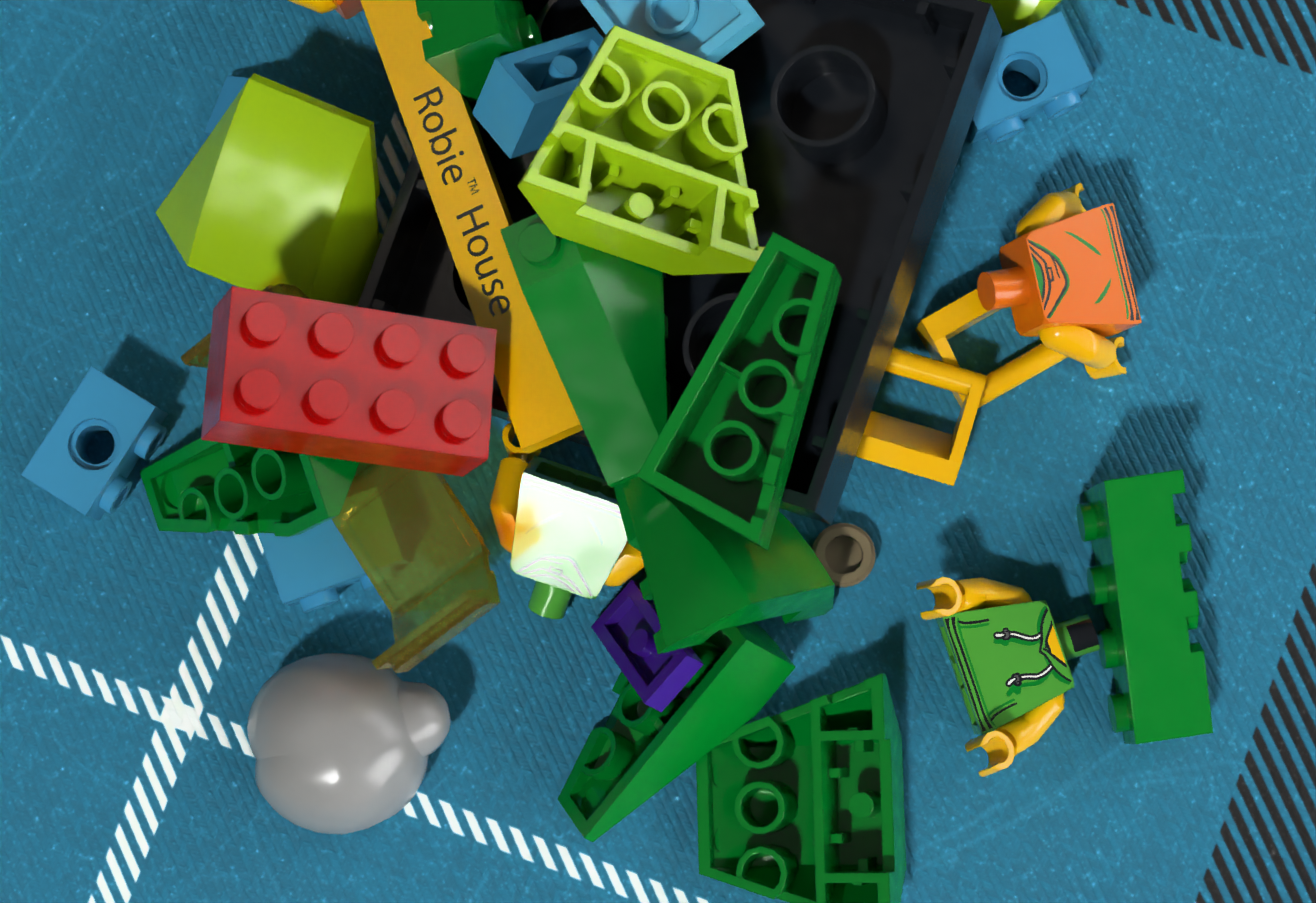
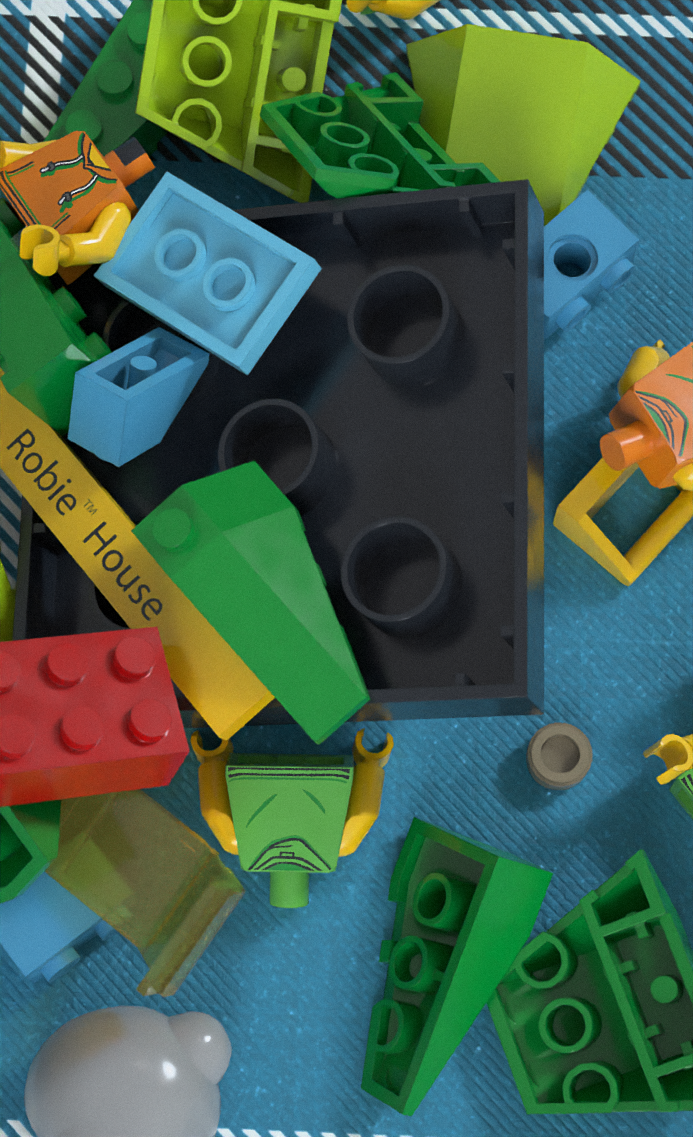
camera: 20 degrees left, 10 degrees down
(628, 633) = (401, 900): dark purple plate -> none
(650, 162) = (257, 422): lime wedge -> none
(712, 576) = (444, 786): green wedge -> none
(747, 400) = (424, 615): green wedge -> none
(918, 447) = (597, 628): yellow tile -> none

